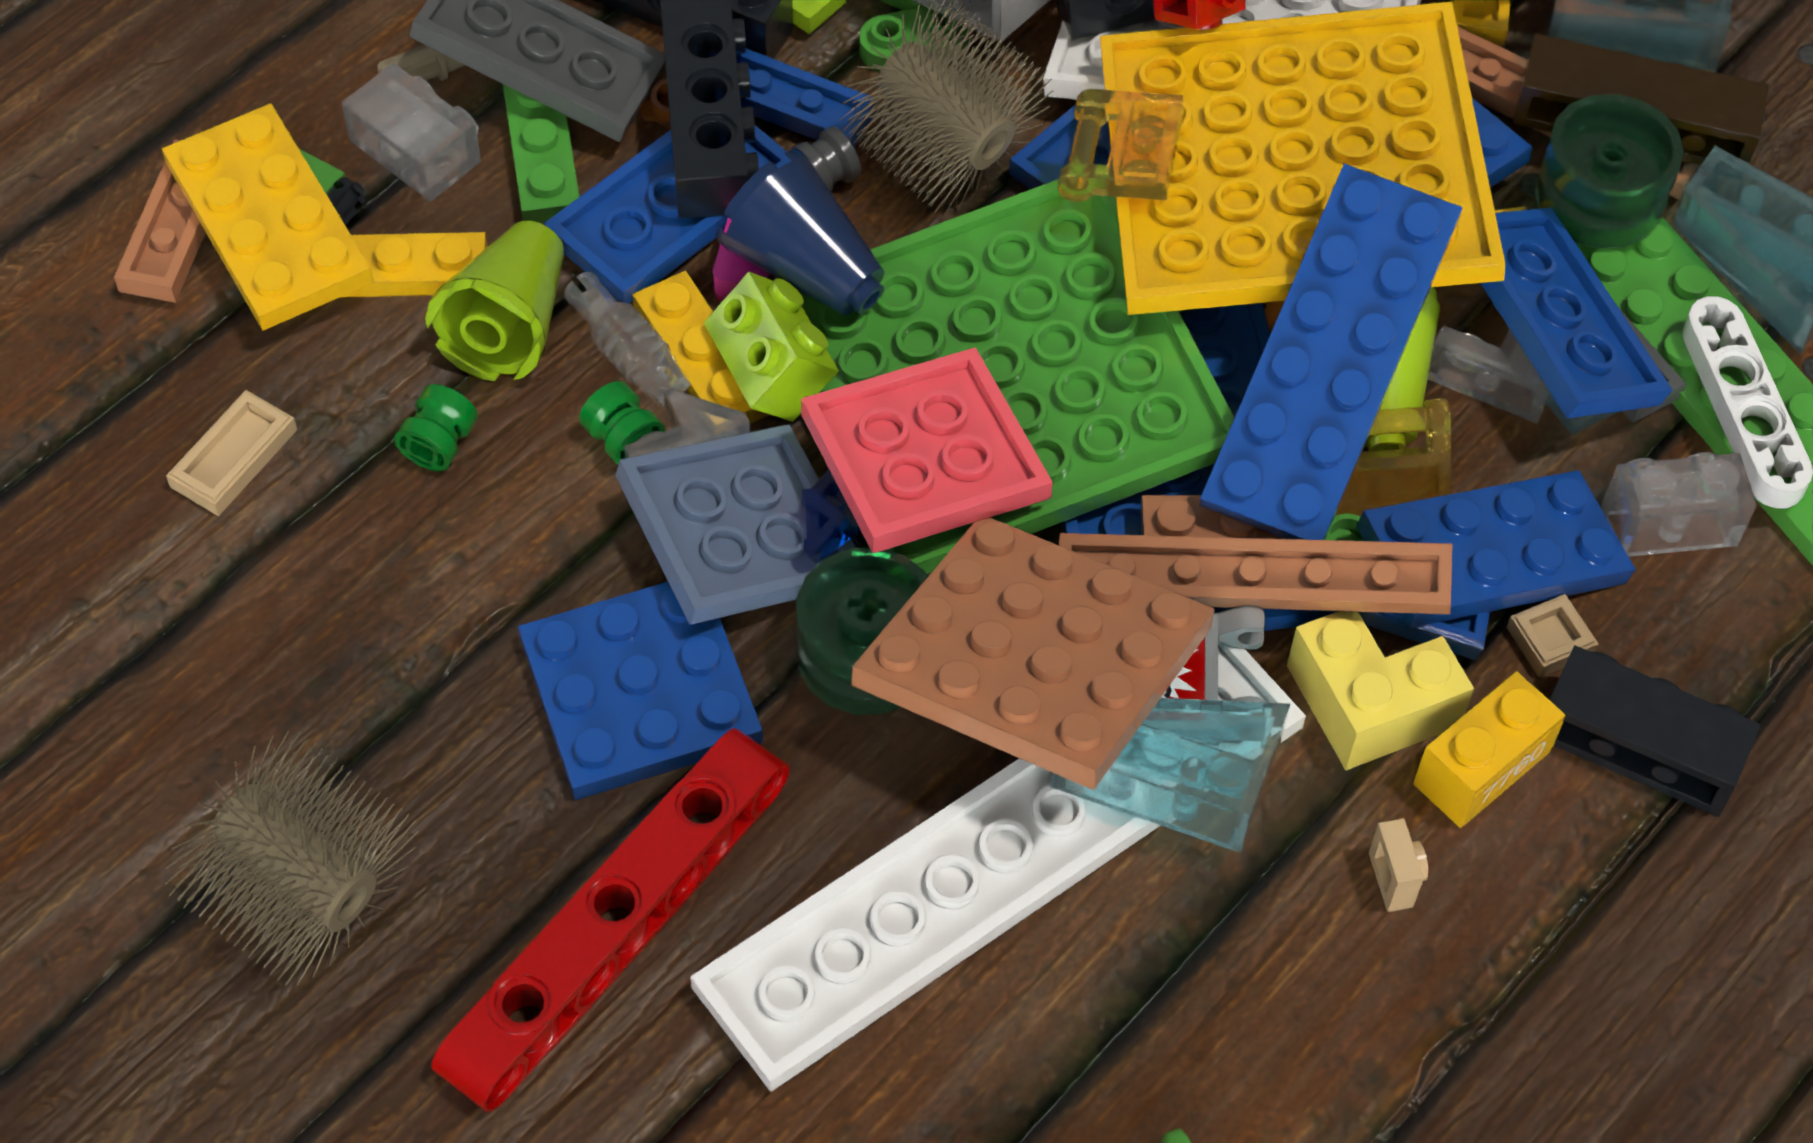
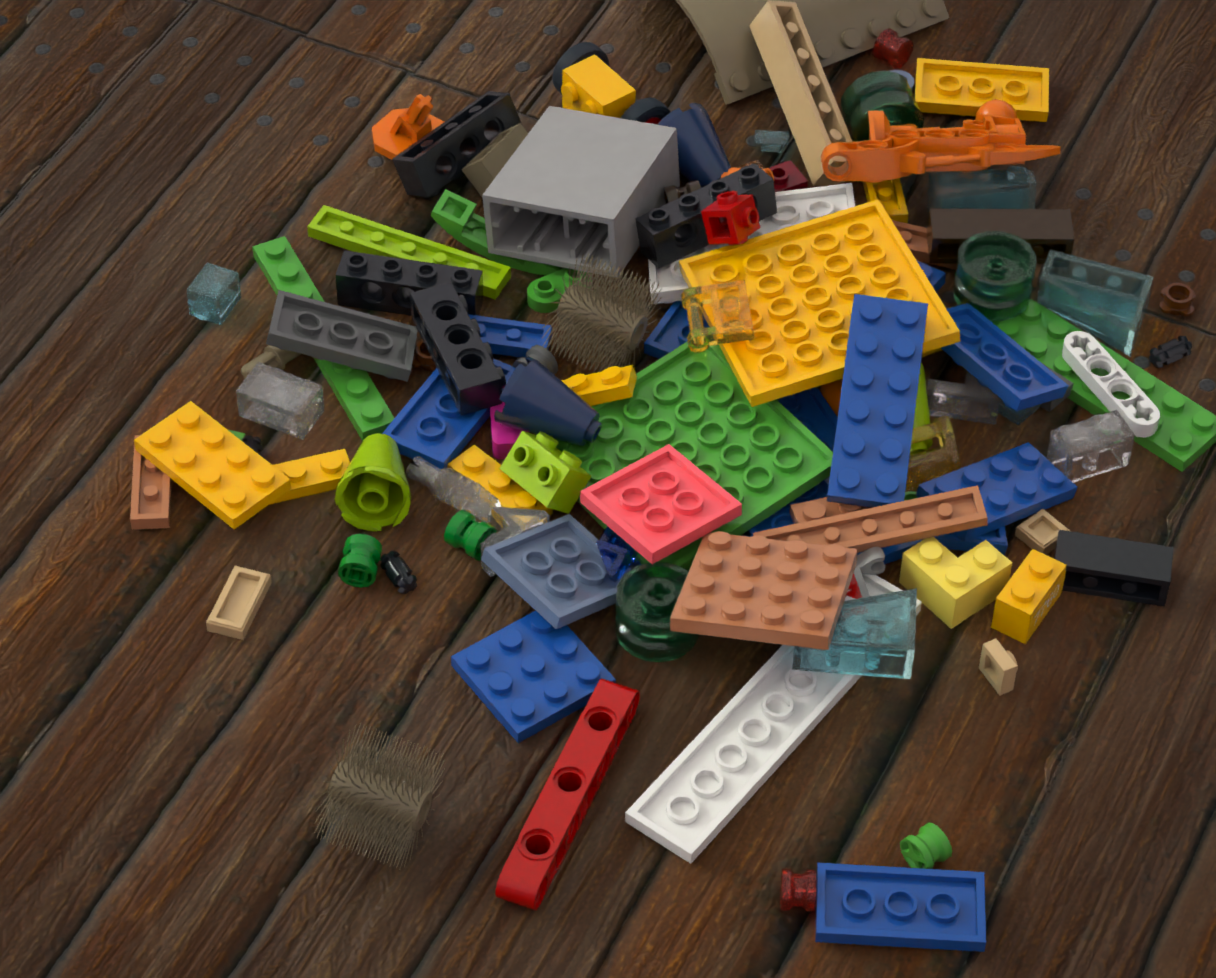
camera: 15 degrees left, 10 degrees down
(492, 460) = (398, 572): none -> black piece
(906, 221) = (604, 386): none -> yellow plate

